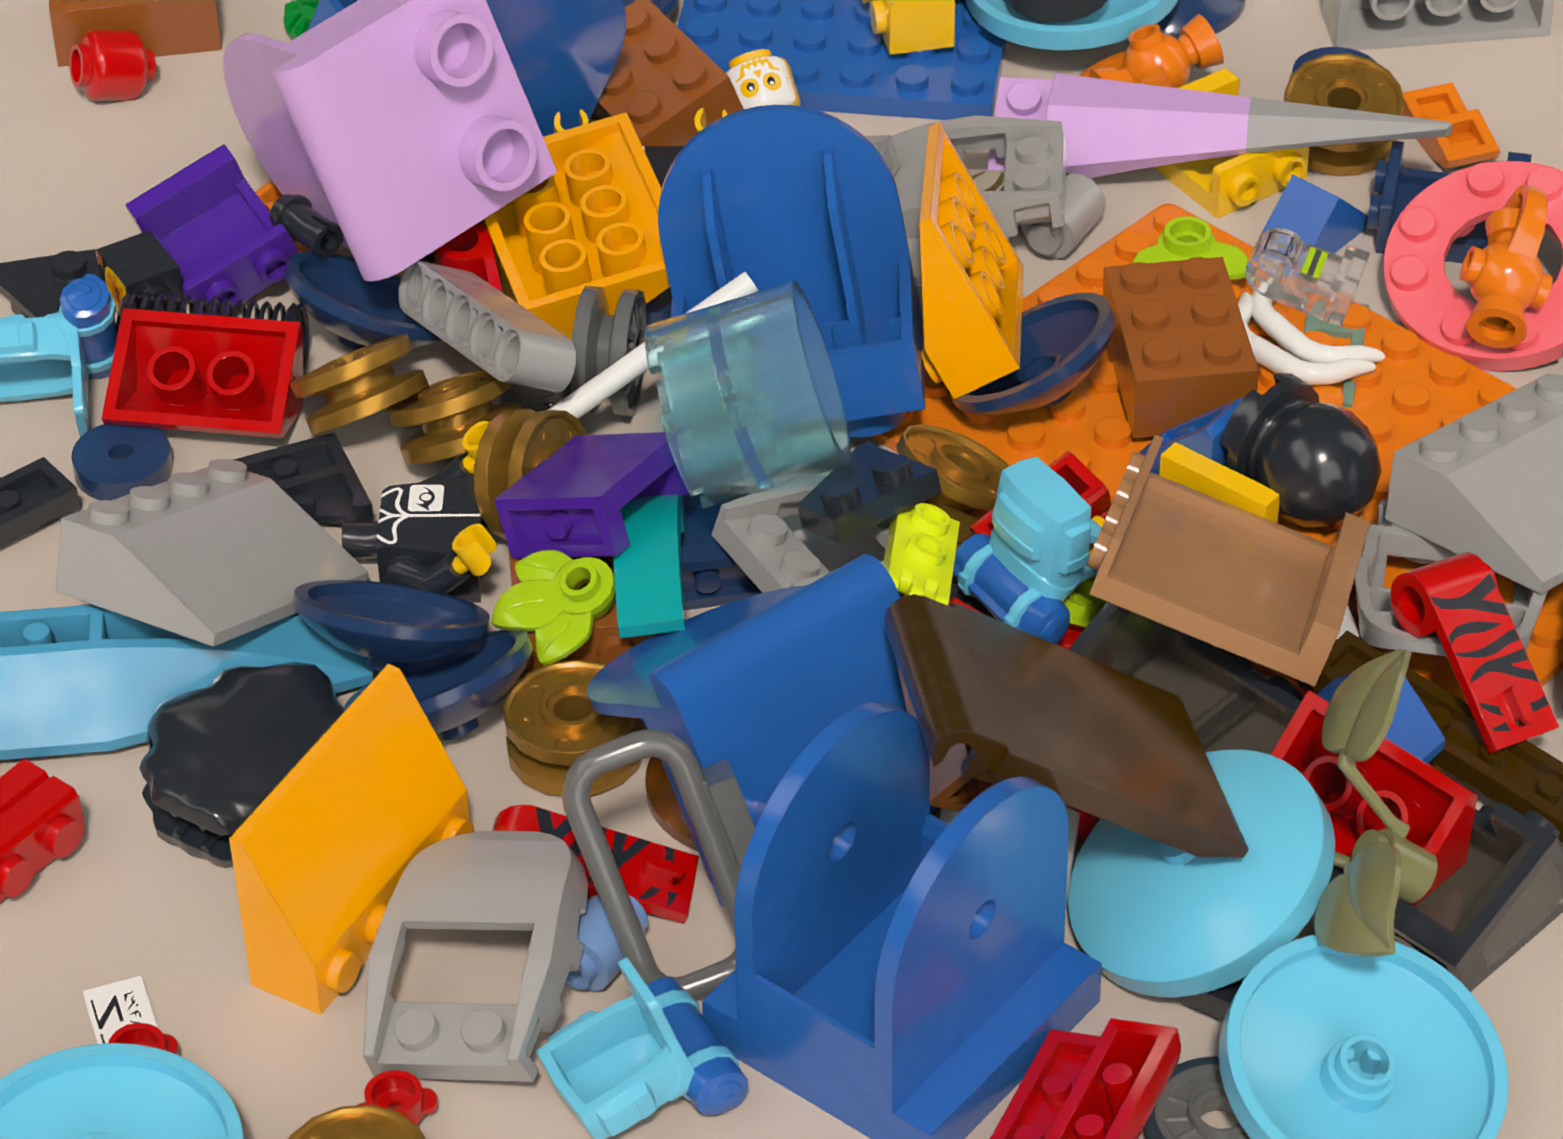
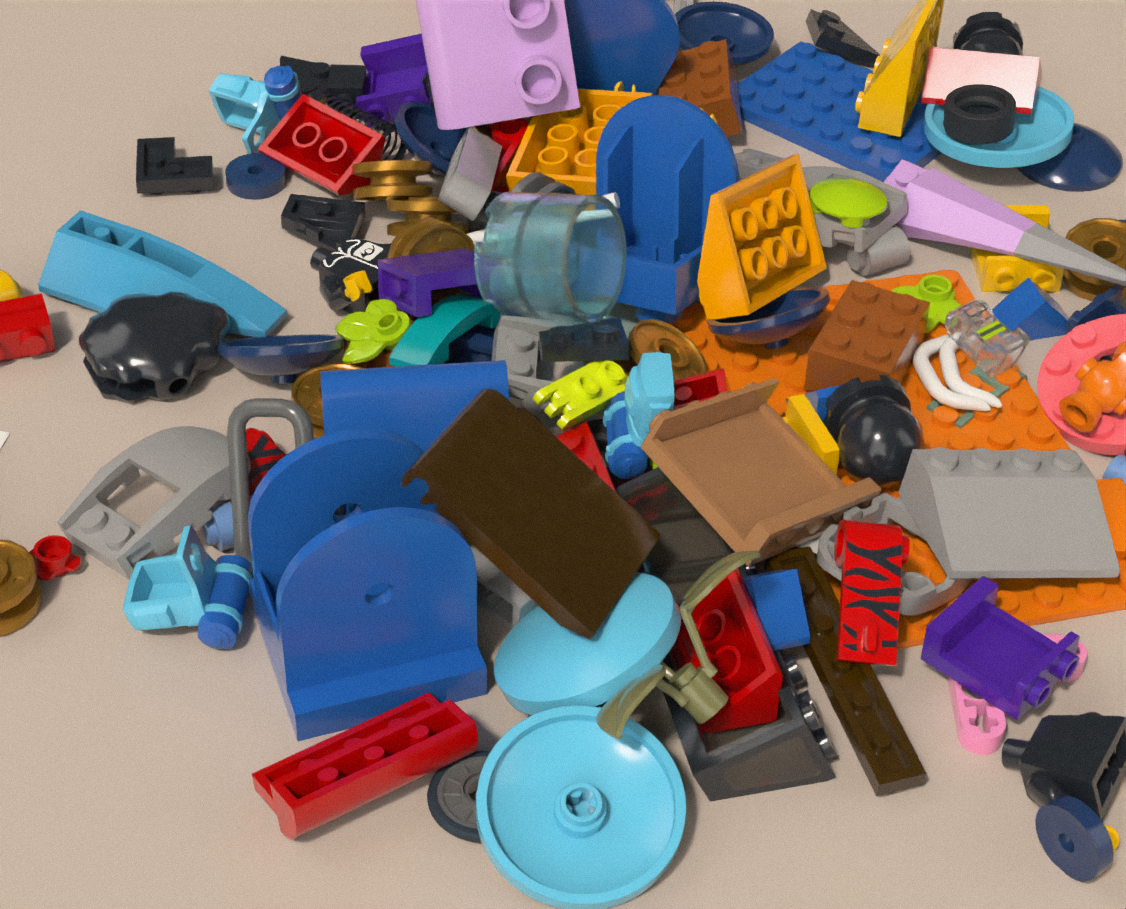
camera: 30 degrees right, 0 degrees up
(199, 553) = (220, 229): light grey slope -> none
(336, 840) = (132, 388): light orange slope -> none
(389, 620) = (283, 302): dark blue dish -> none
(763, 80) = (763, 119): head -> none
(1013, 160) = (848, 200): none -> lime dish
(1160, 57) = (1014, 186): orange piece -> none

